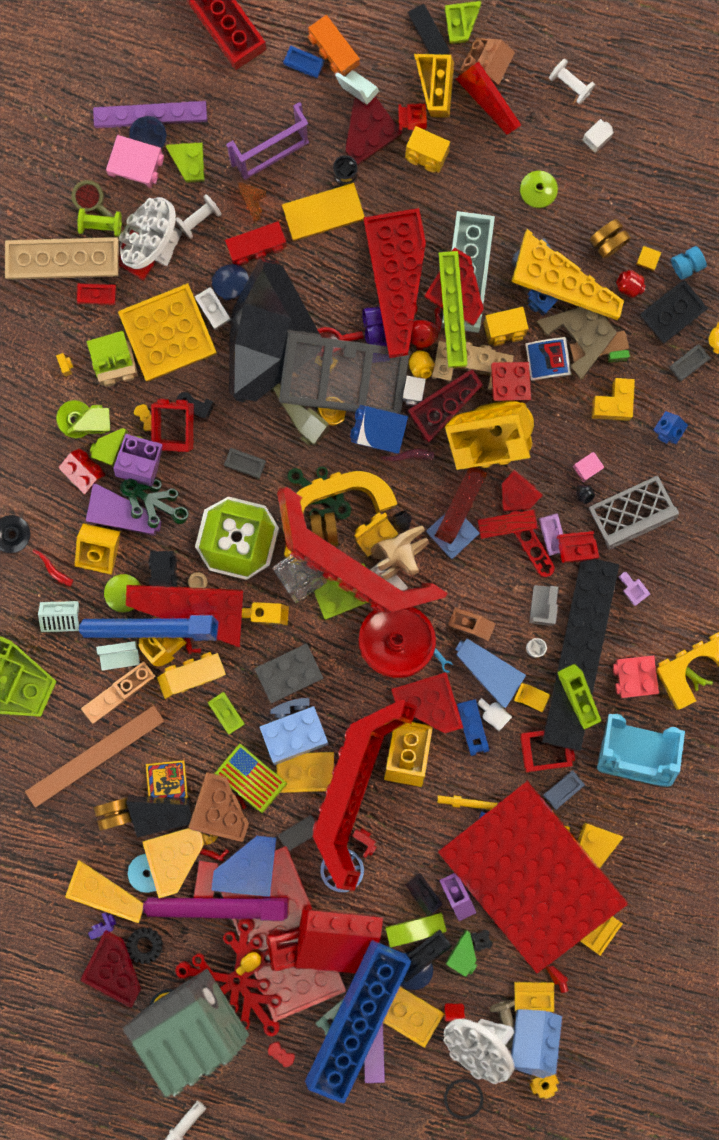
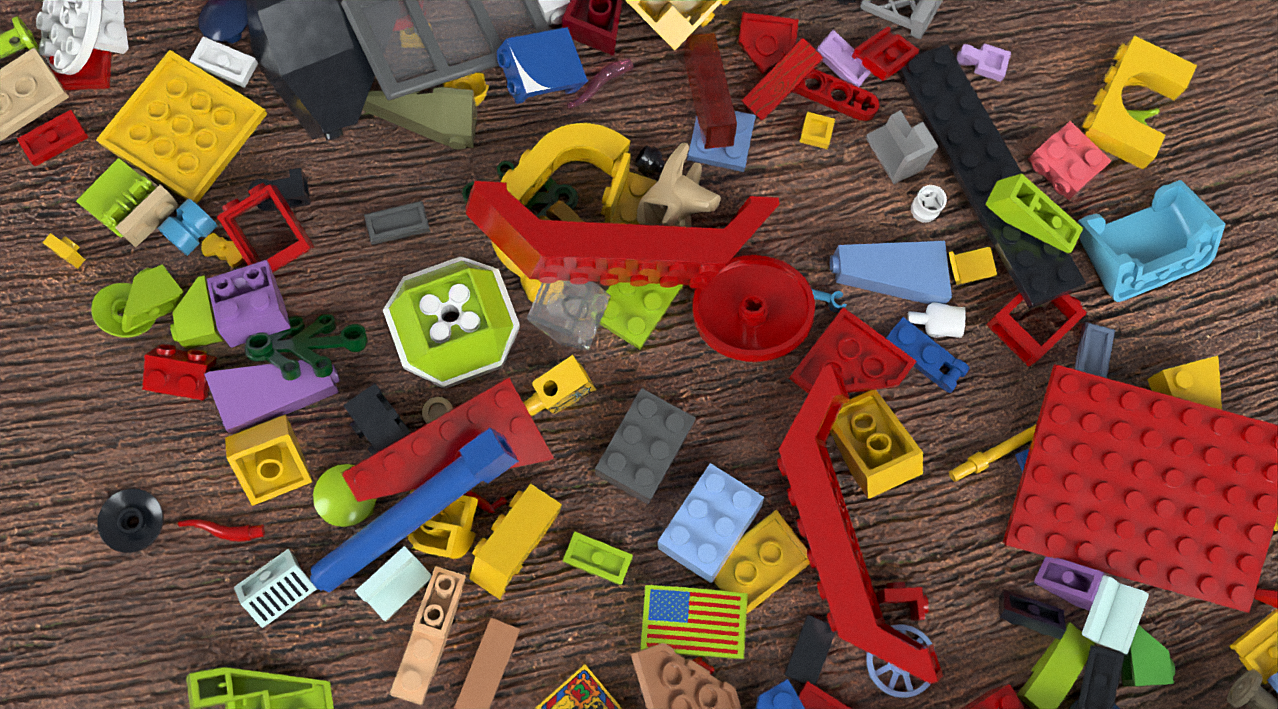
camera: 45 degrees left, 10 degrees down
(134, 394) = (187, 226): none -> dark azure wheel
(285, 708) = (672, 496): sand blue slope -> none
(461, 923) = (1115, 615): none -> light aqua panel
(471, 624) = (829, 227): nougat slope -> none
(482, 935) = (1156, 618): black plate -> none
(507, 564) = (817, 130): none -> yellow plate

